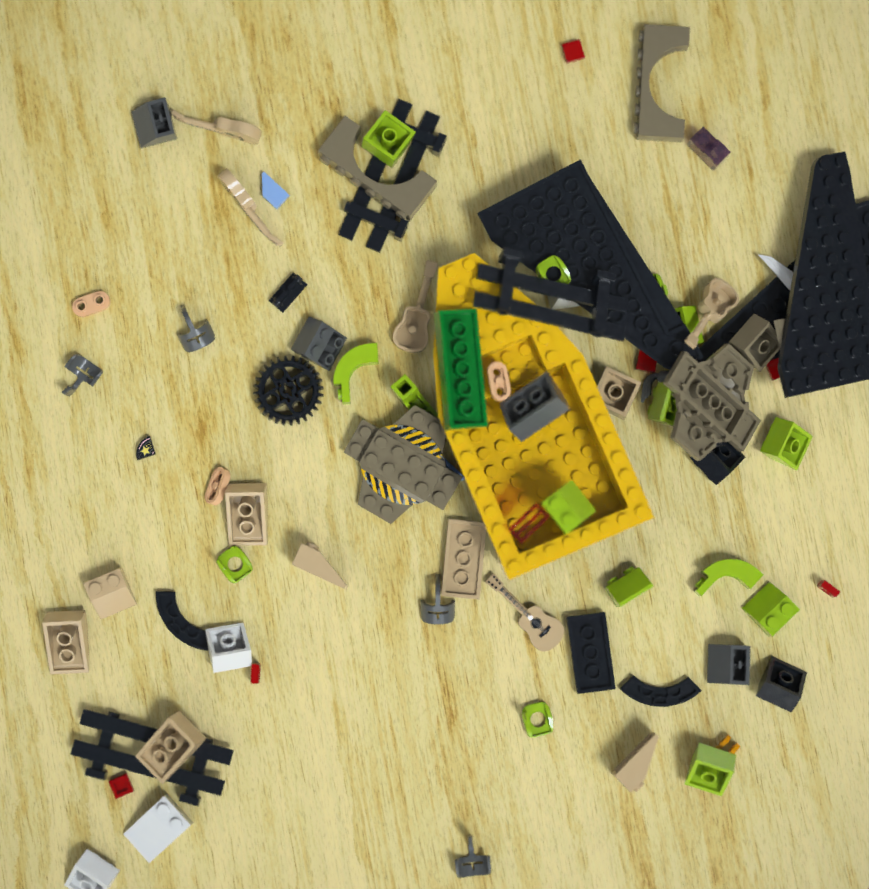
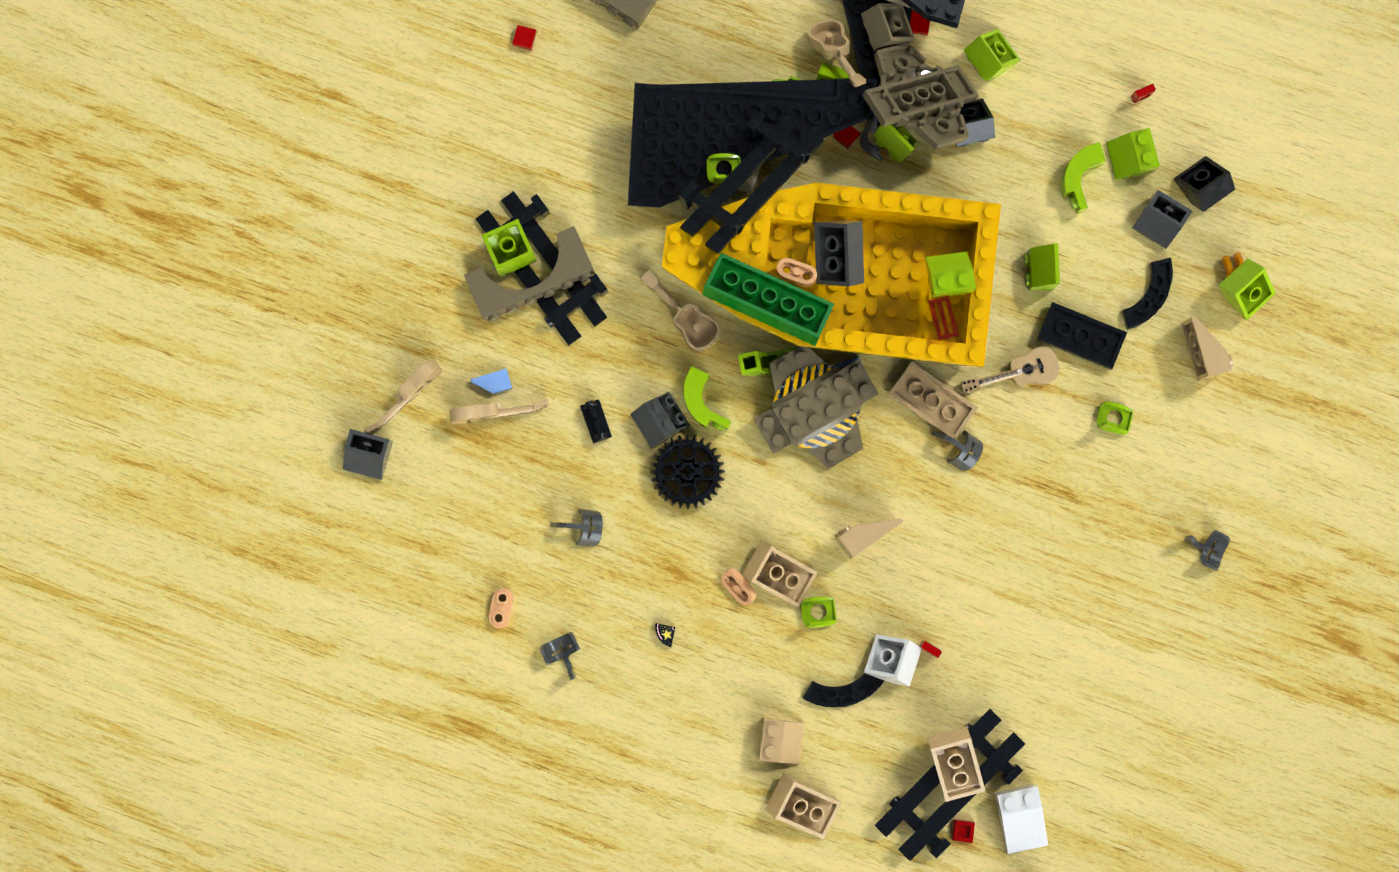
camera: 55 degrees left, 0 degrees up
(617, 392) = (862, 173): tan slope -> none

